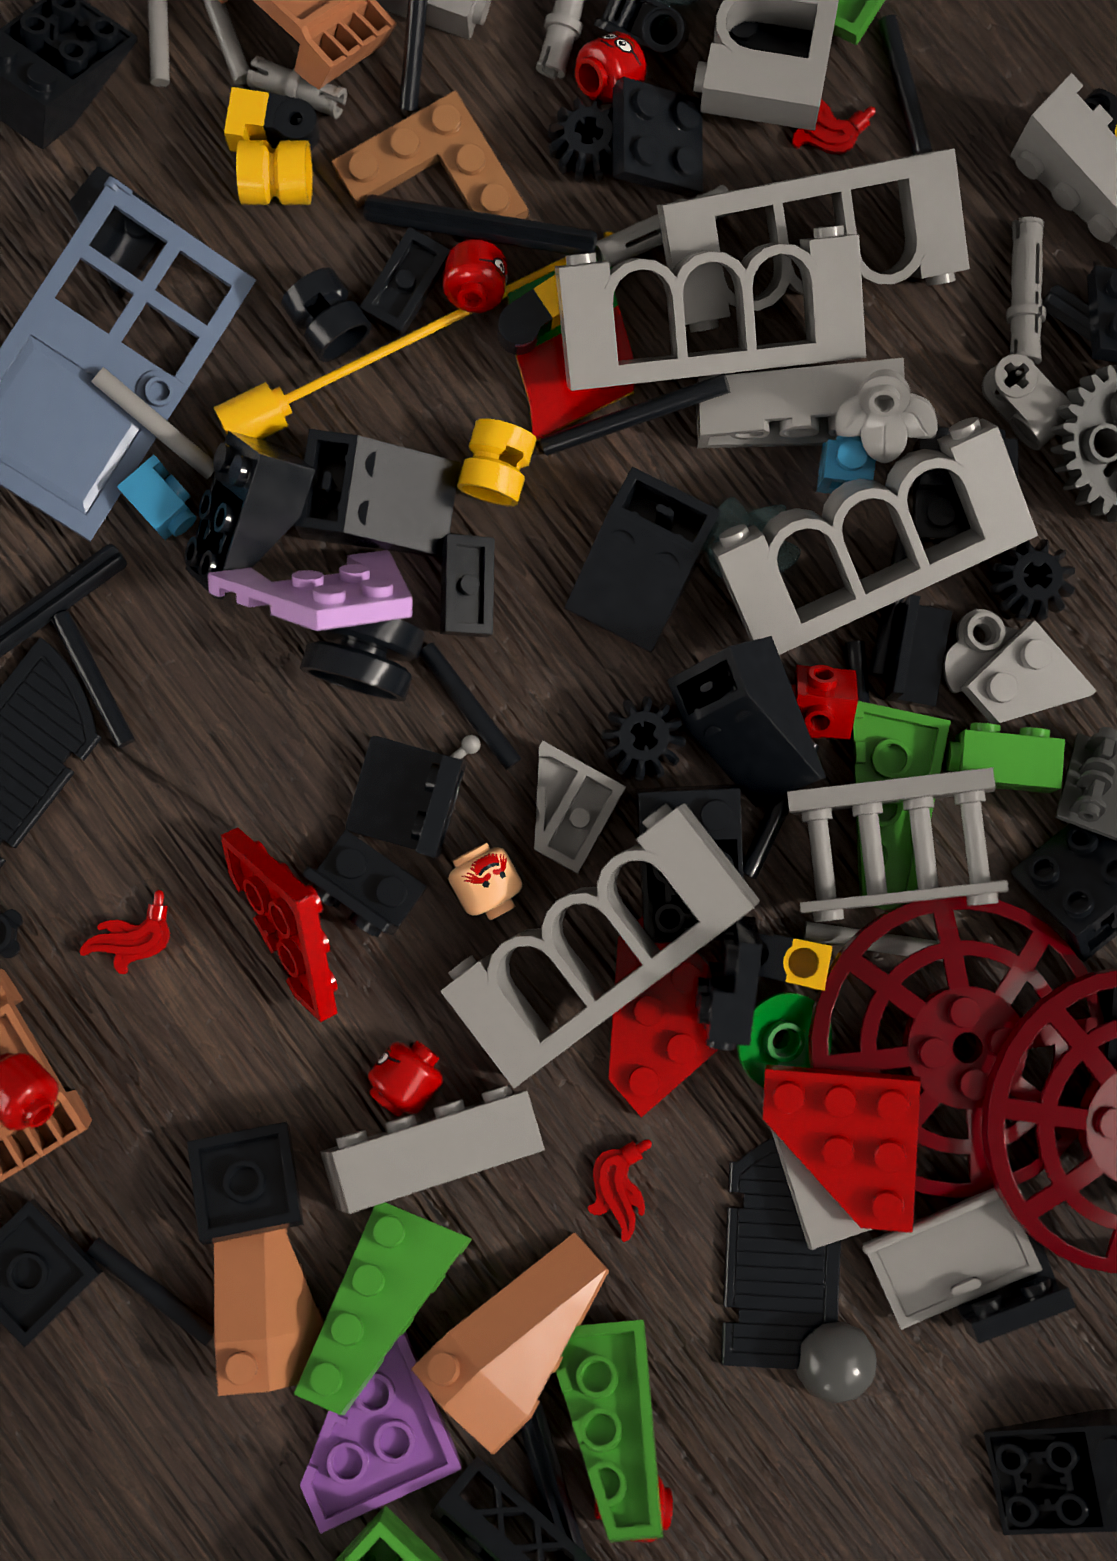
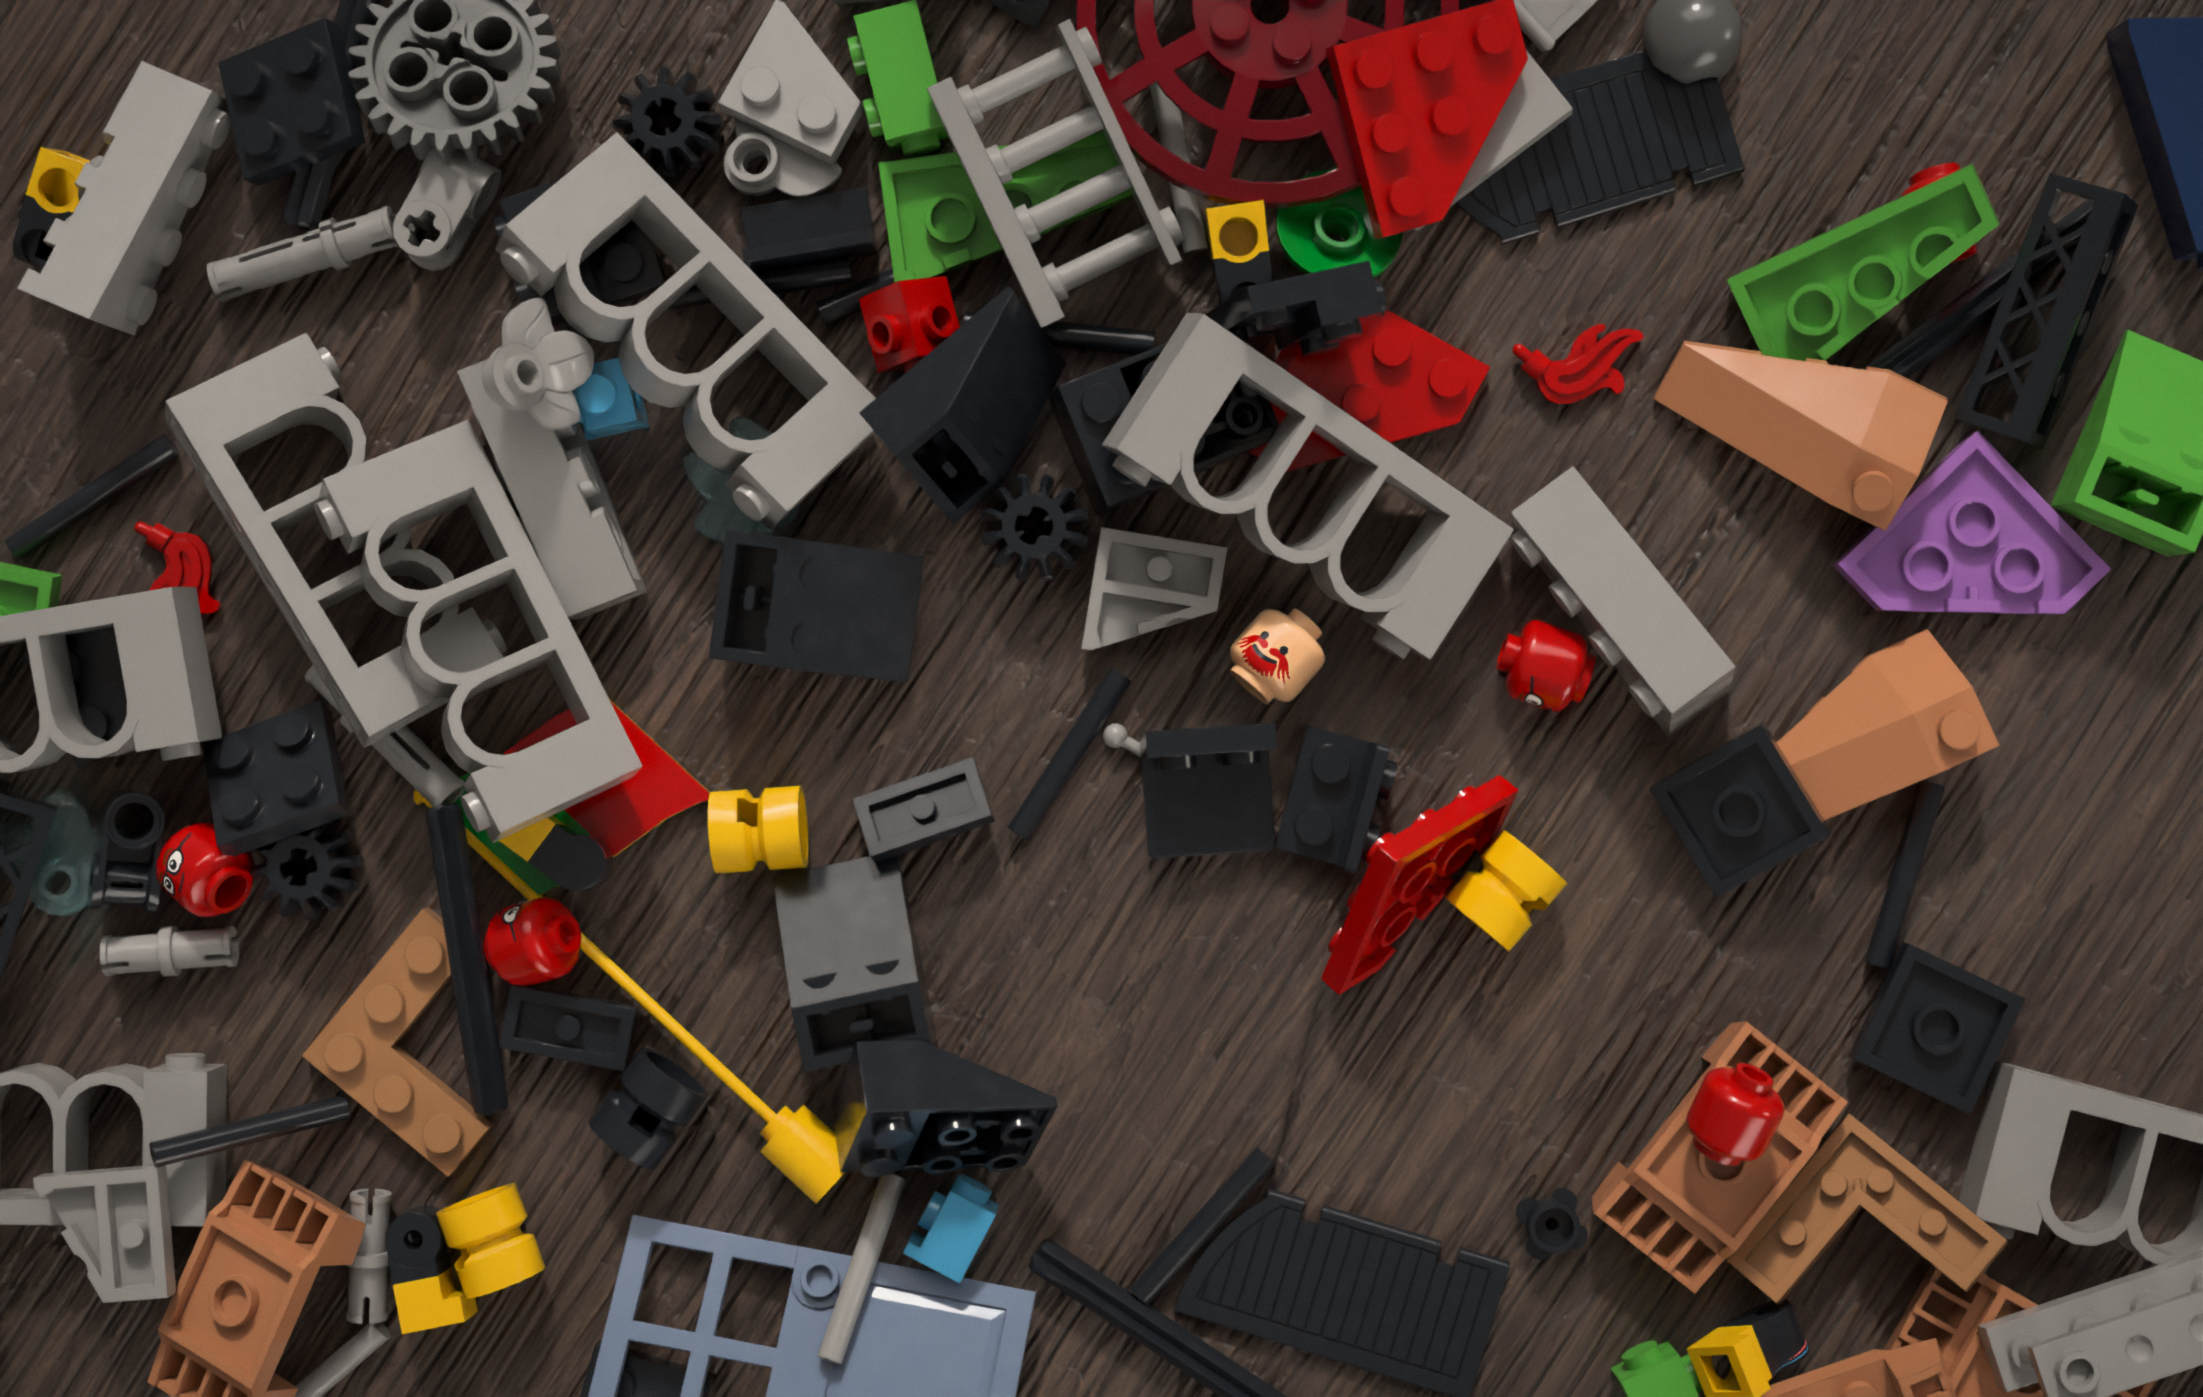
camera: 110 degrees left, 5 degrees up
(132, 941) = (1501, 1057): red piece -> none
(250, 986) = (1506, 890): none -> yellow wheel
(361, 593) = (998, 931): lavender wing -> none
(363, 656) = (1050, 905): black wheel -> none
(383, 1289) = (1810, 599): bright green wing -> none
(635, 414) = (638, 679): black bar -> none

